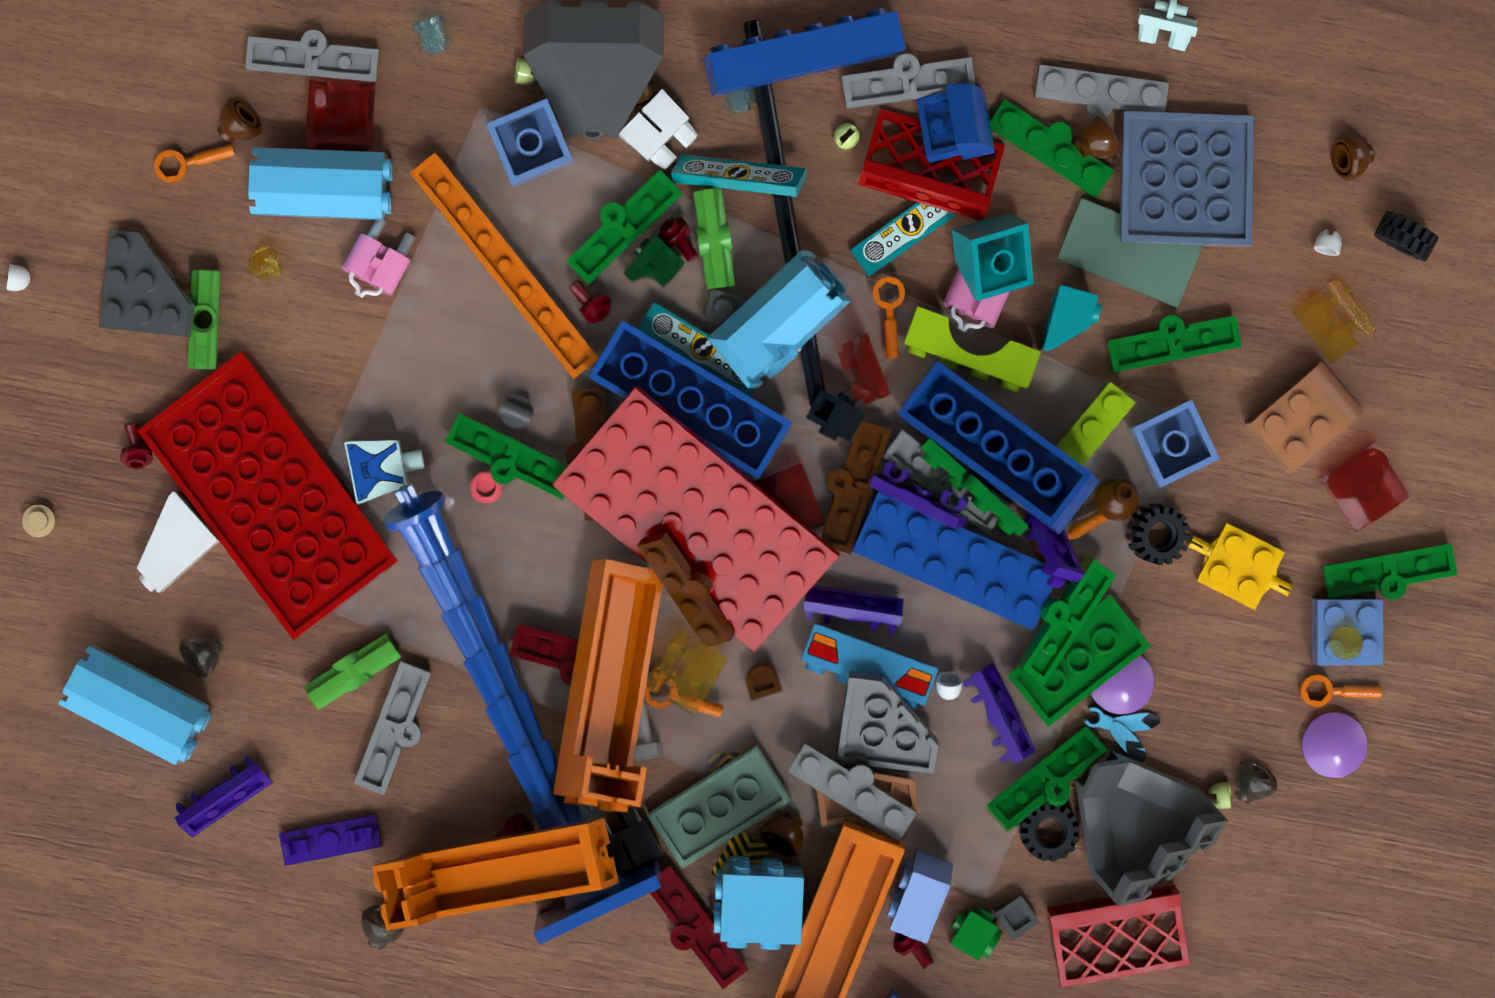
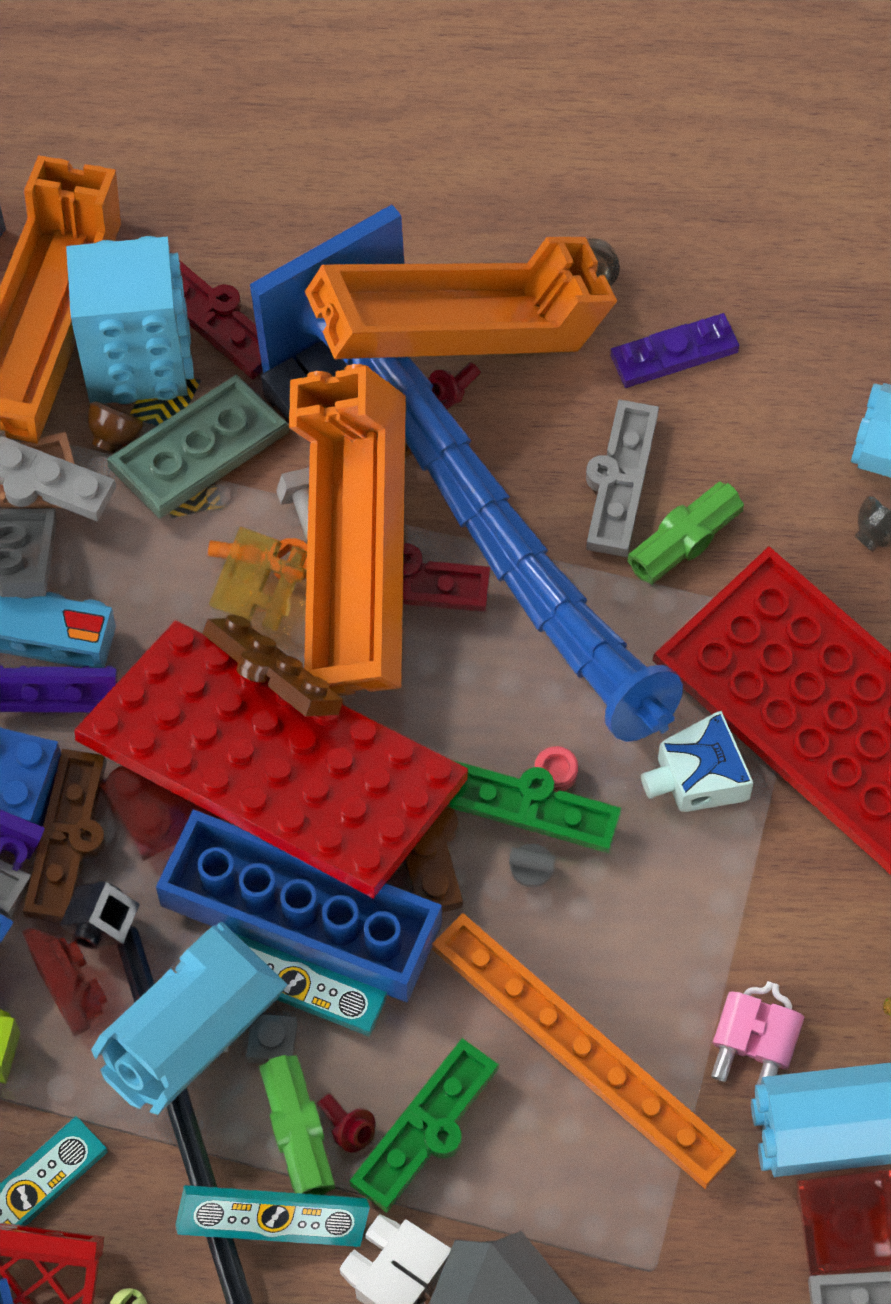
camera: 175 degrees right, 25 degrees down
(222, 798) = (817, 373): dark purple plate -> none
(530, 143) = (575, 1213): medium blue brick -> none
(594, 307) = (448, 1013): dark red plate -> none
(654, 262) = (375, 1079): dark green brick -> none
(762, 681) = (161, 590): reddish brown tile -> none
(890, 322) = (39, 1056): orange piece -> none

